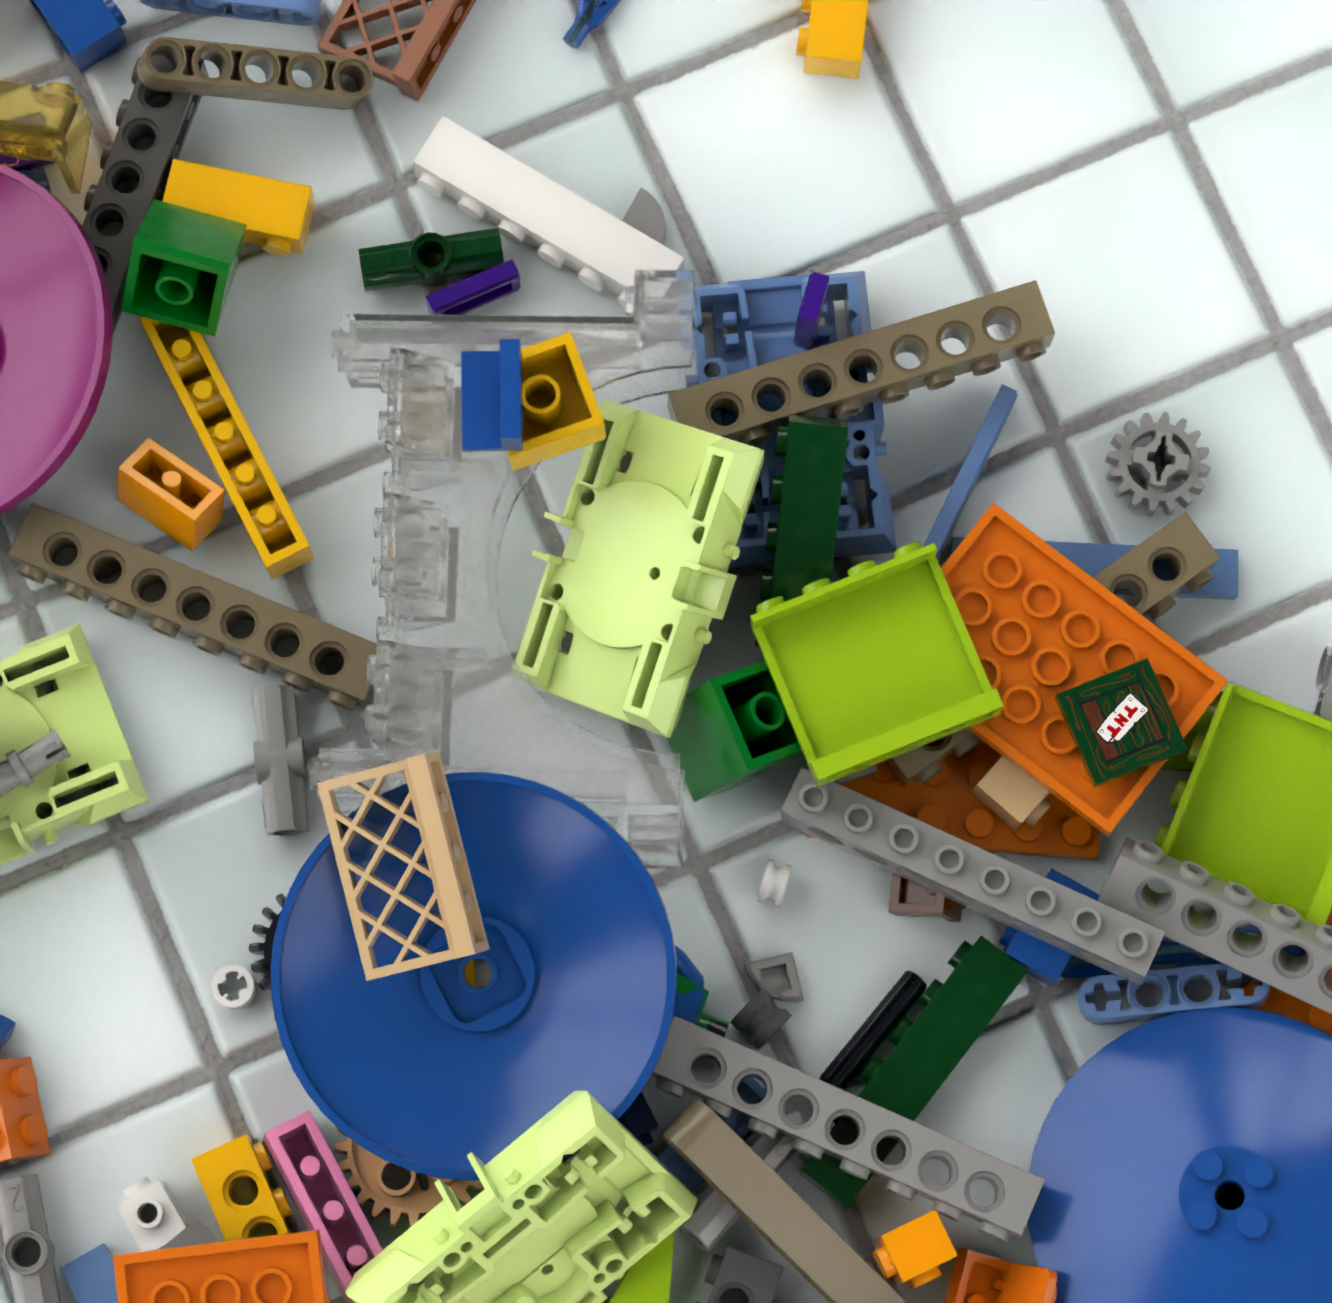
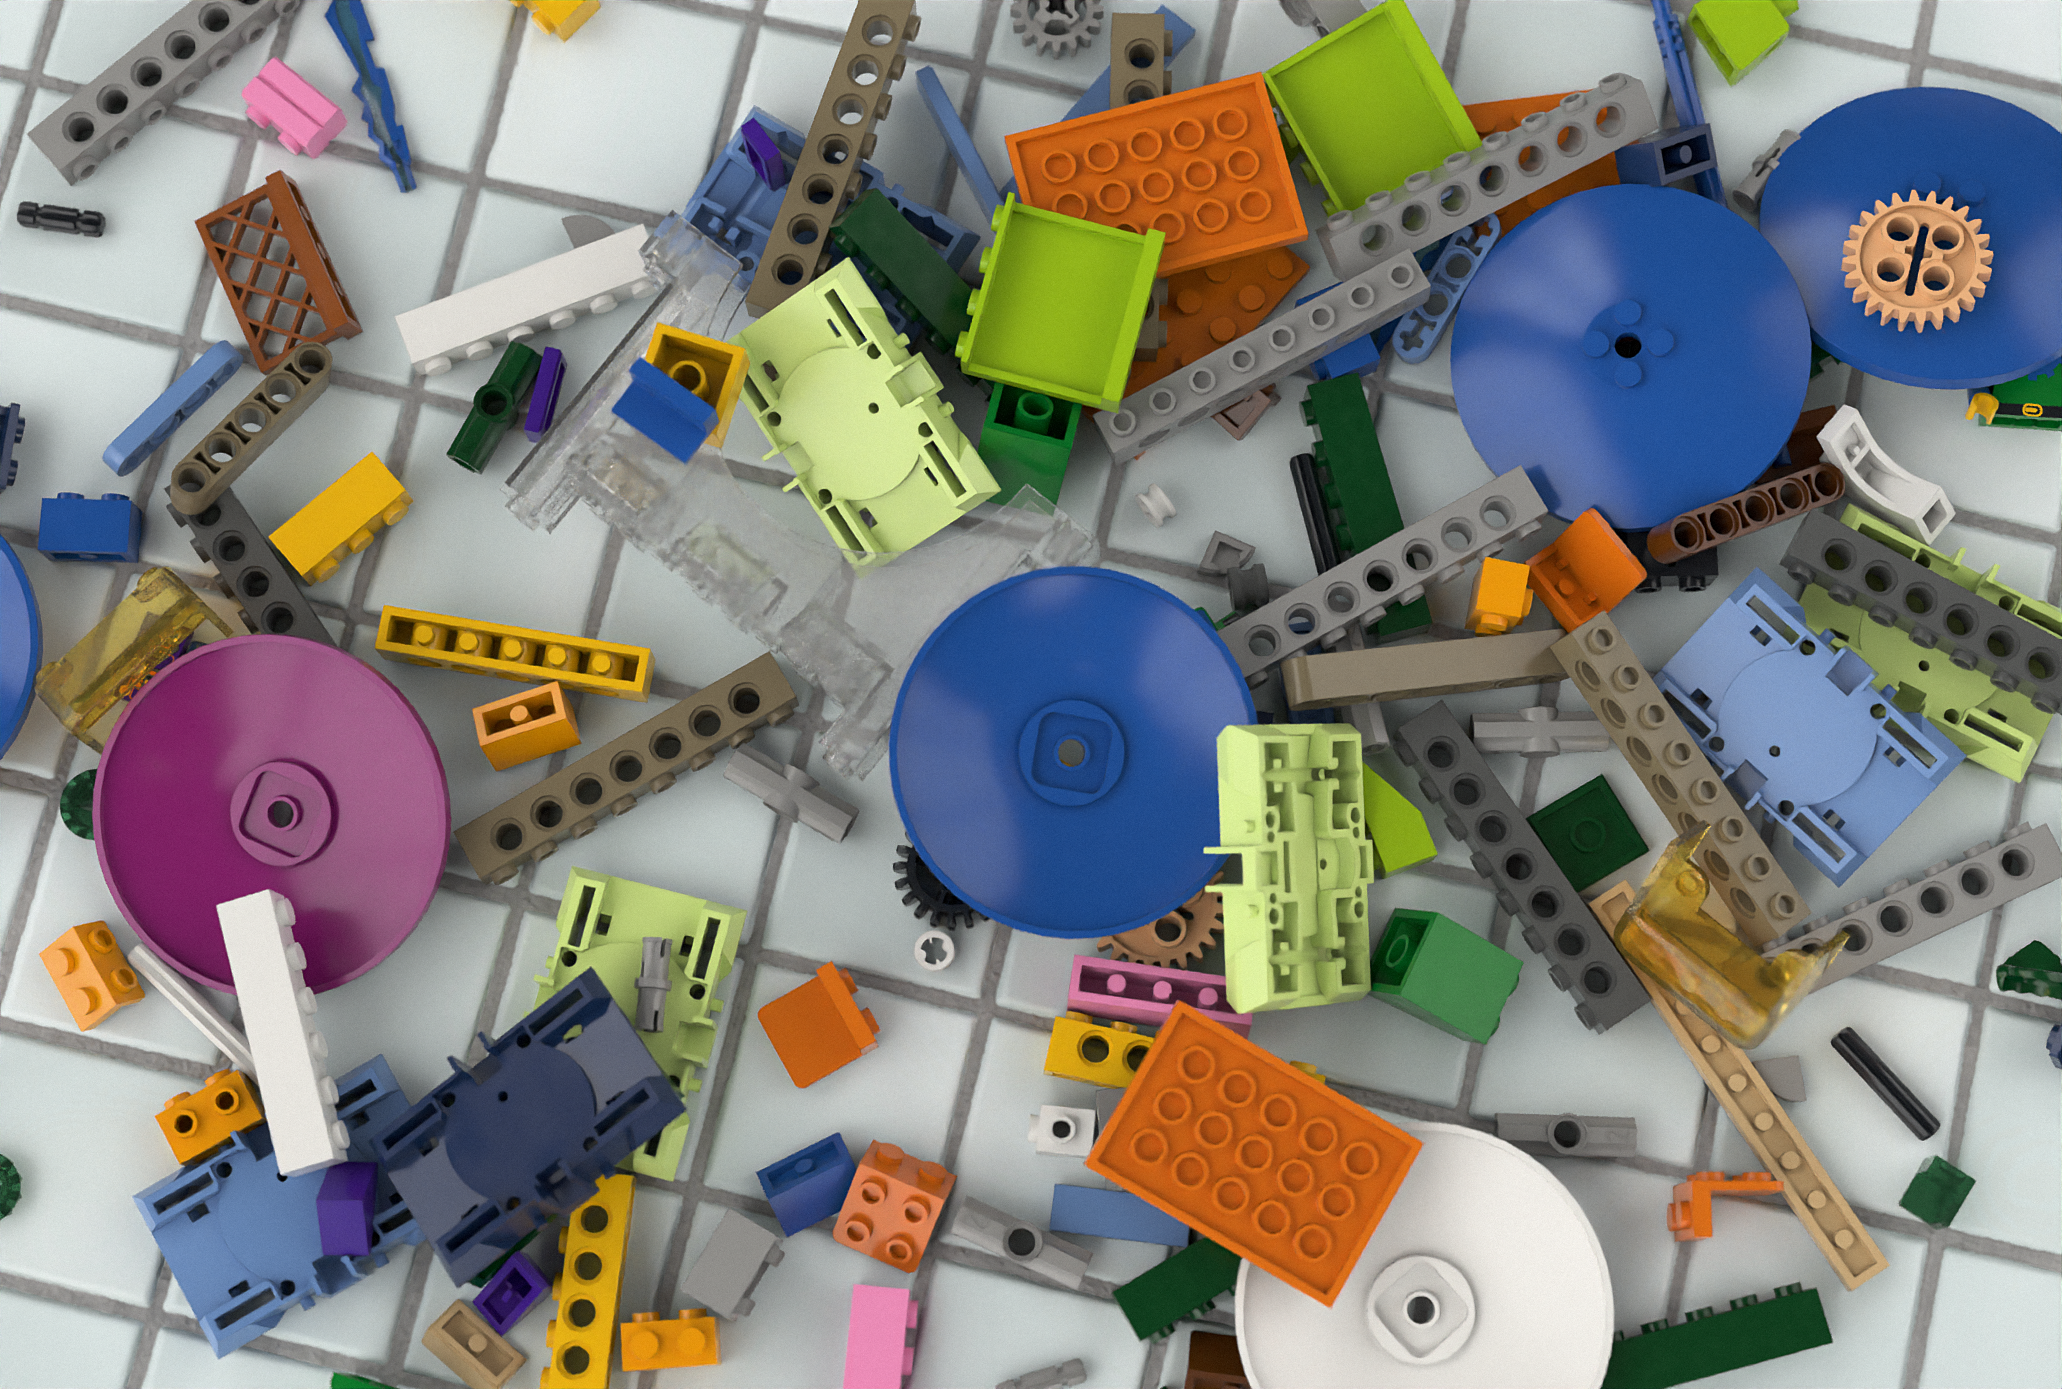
camera: 50 degrees left, 0 degrees up
(93, 937) = (819, 1026): none -> orange bracket
(182, 267) = (365, 583): green slope -> none
(444, 857) = (976, 703): tan fence -> none
(1012, 794) = (1222, 287): tan brick -> none
(1120, 723) = (1235, 166): dark green tile -> none

